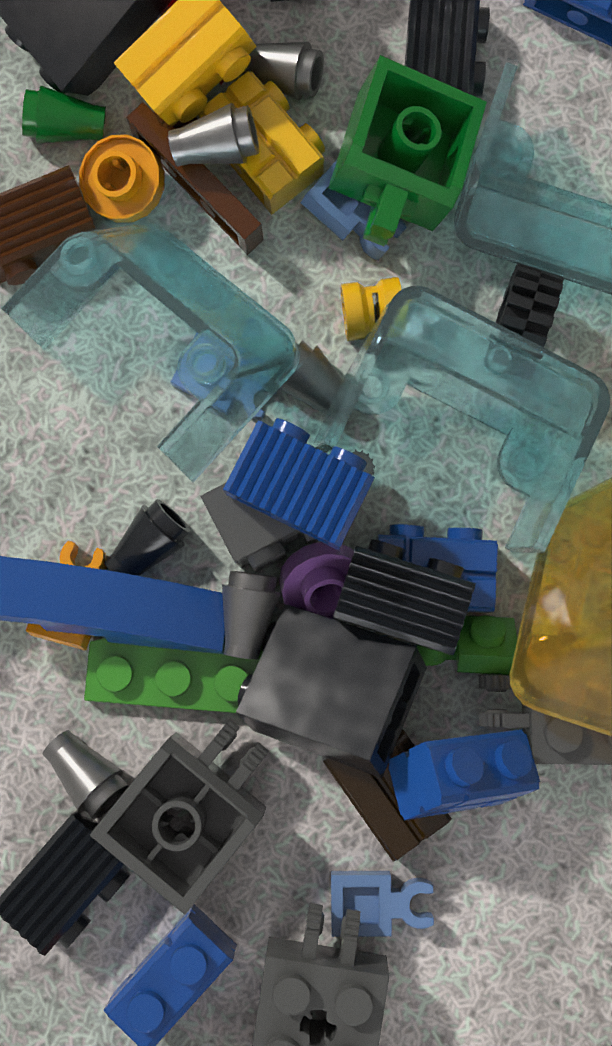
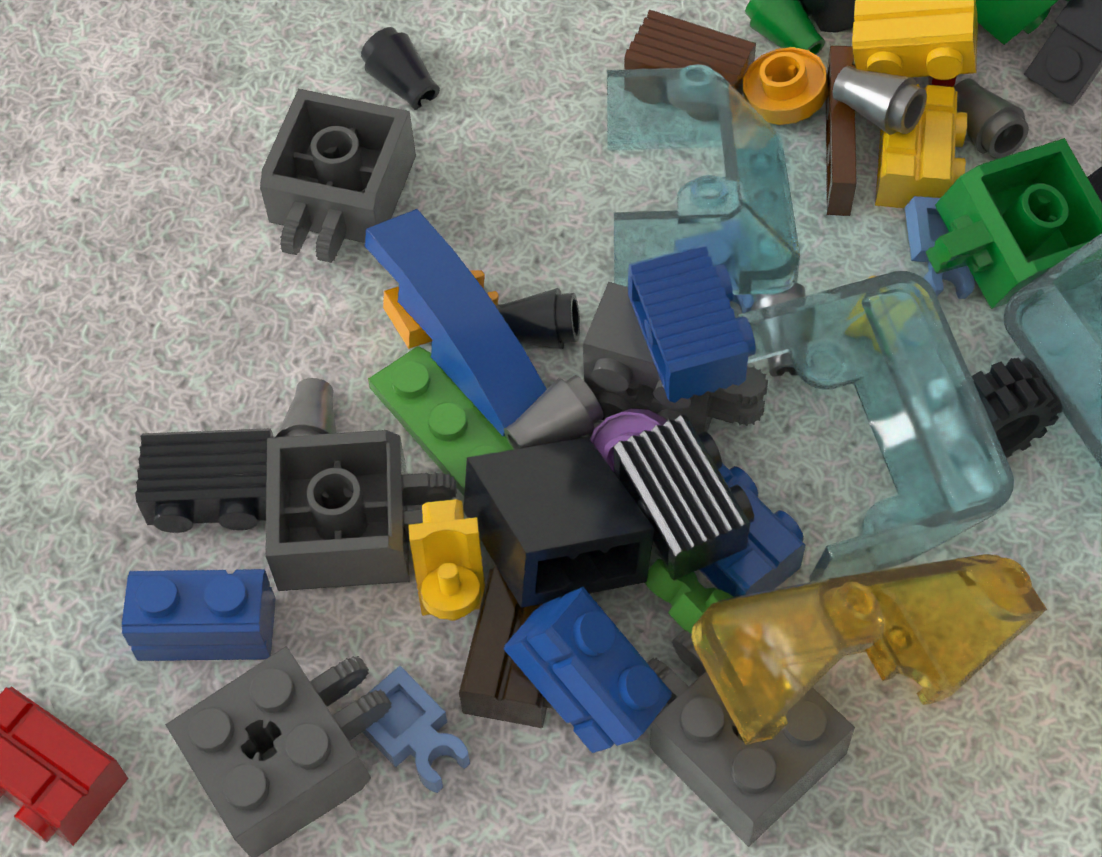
camera: 45 degrees right, 25 degrees down
(297, 789) = (447, 561): none -> yellow hips

